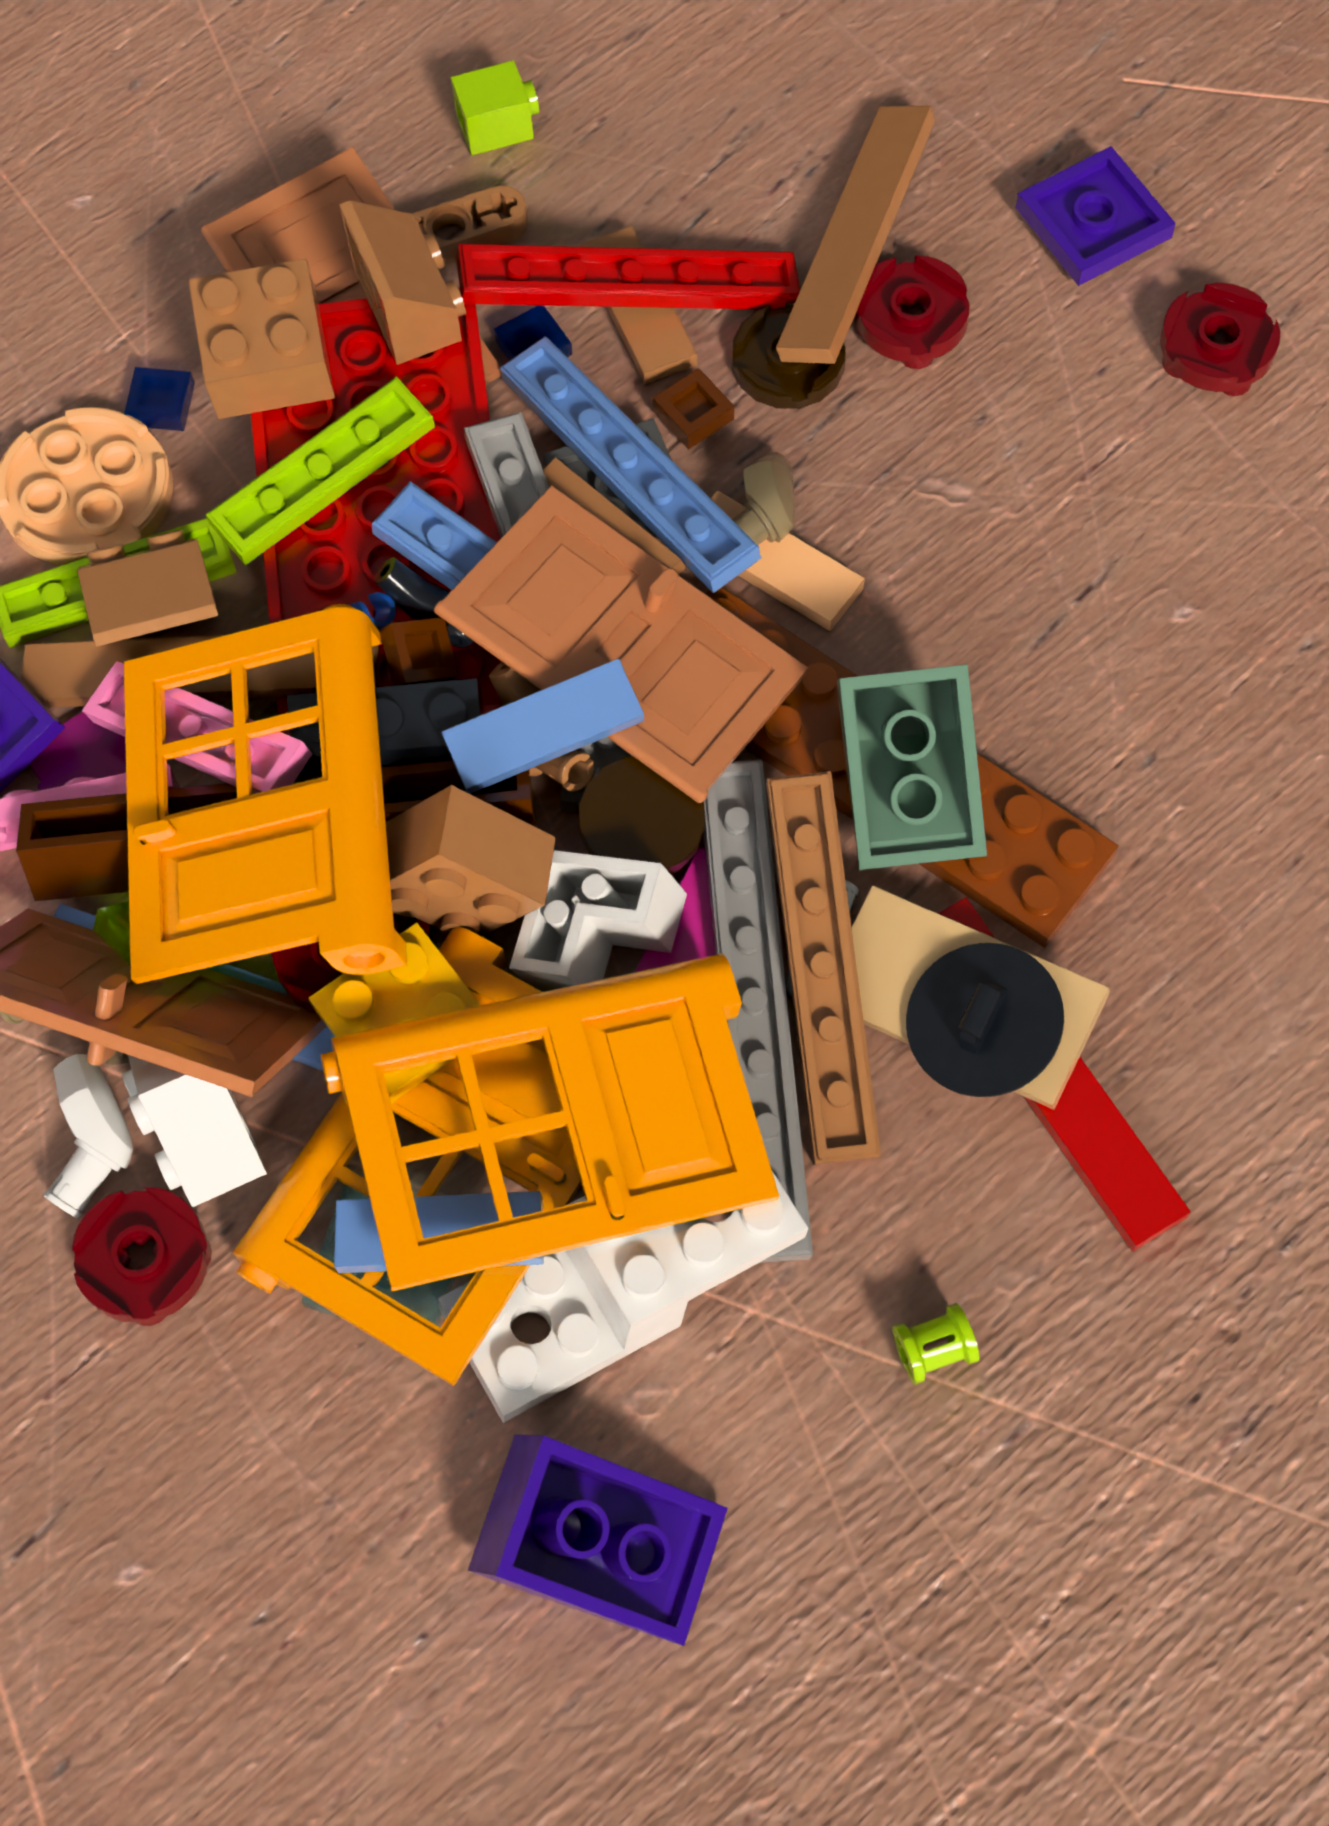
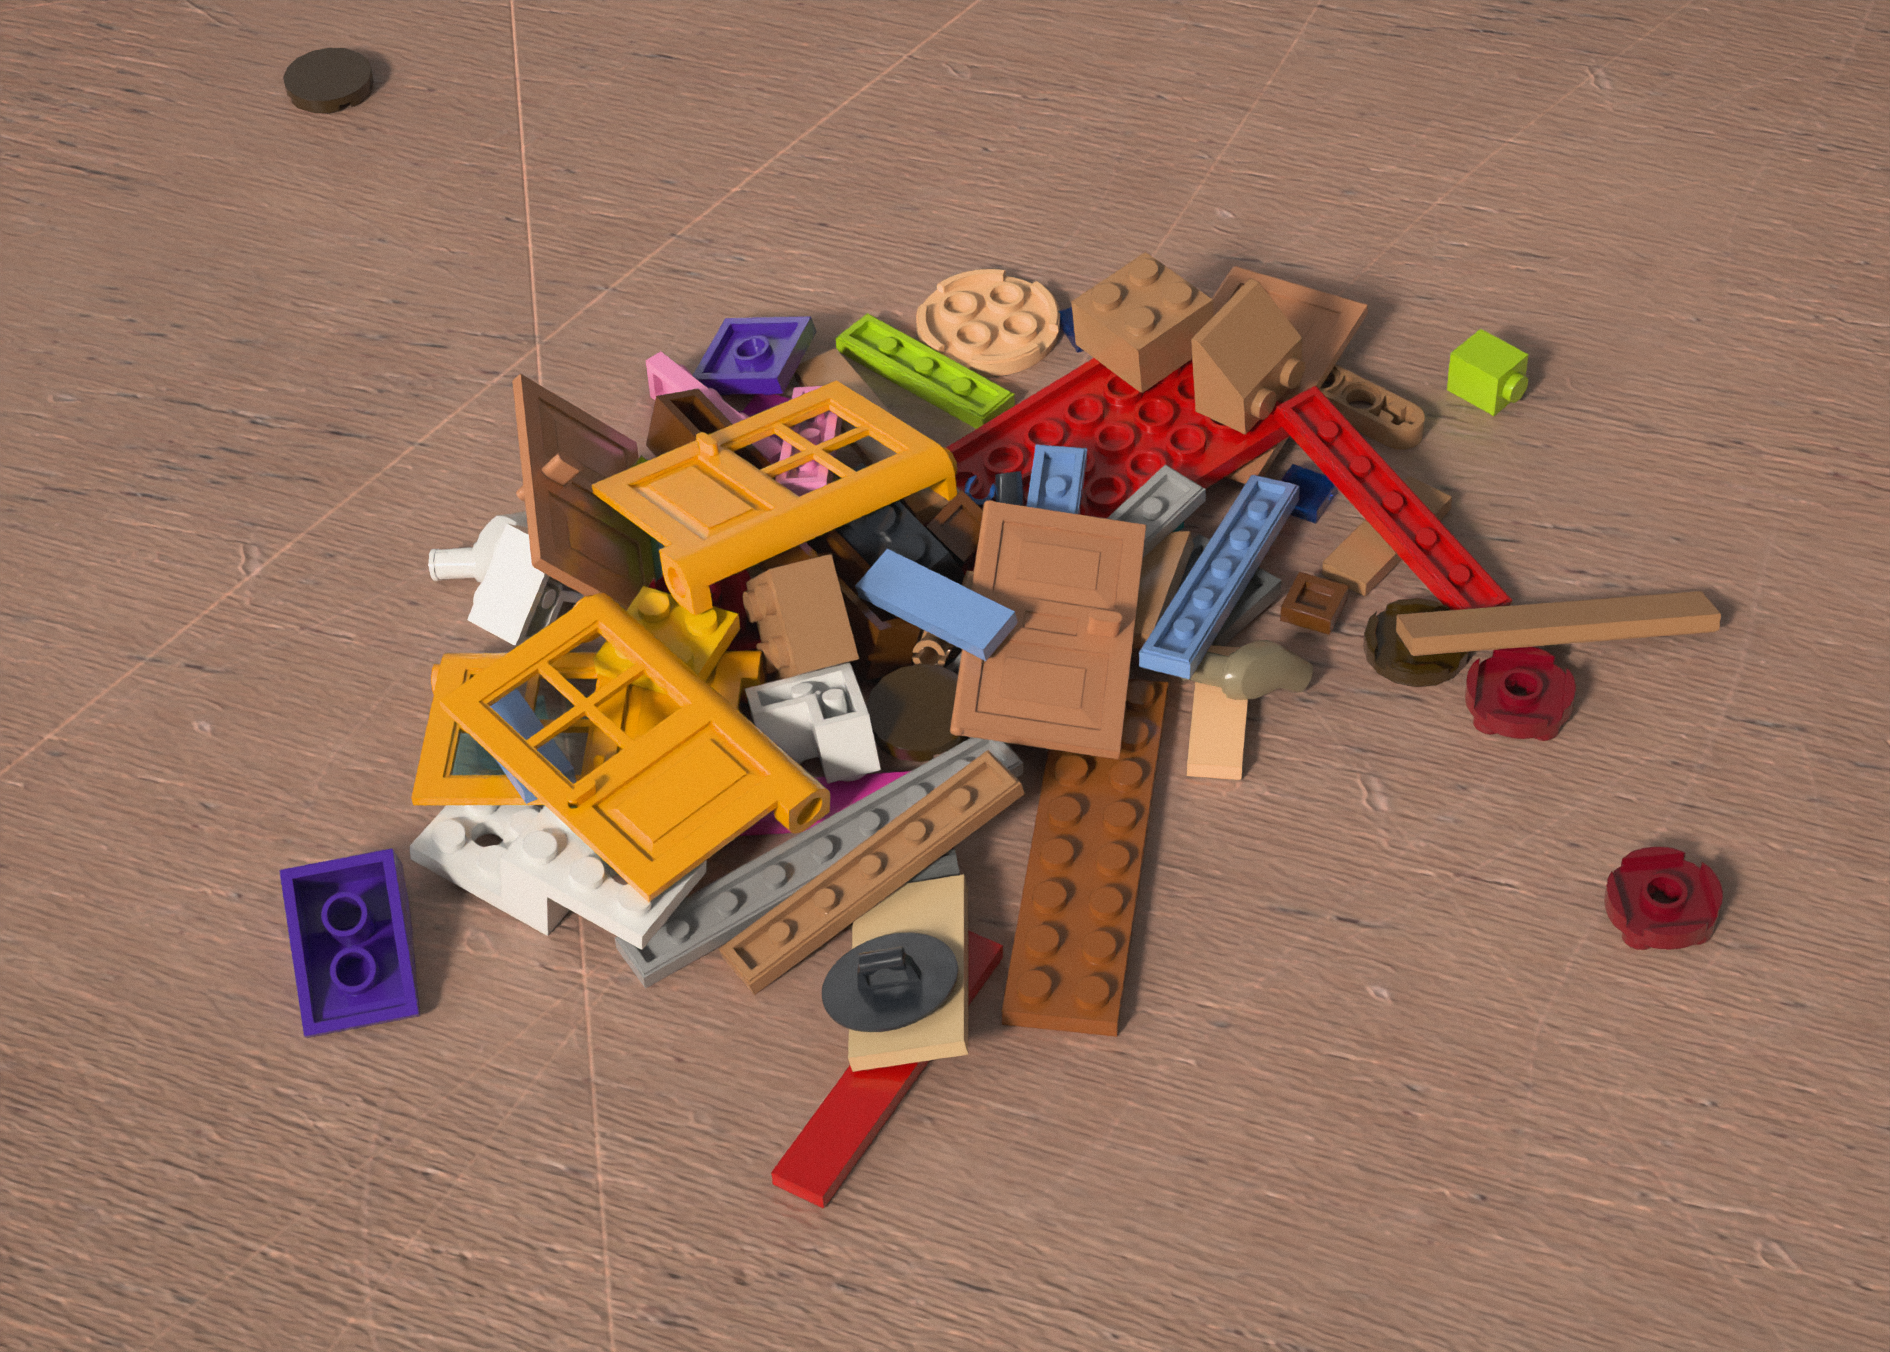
camera: 60 degrees right, 20 degrees down
(146, 588) = (912, 374): medium nougat slope -> none
(149, 1291) = (422, 641): dark red plate -> none
(320, 470) = (1075, 413): lime tile -> none
(912, 766) = (1077, 842): sand green slope -> none
(960, 1343) = (613, 1078): lime bush -> none
(1095, 215) = (1714, 767): dark purple plate -> none

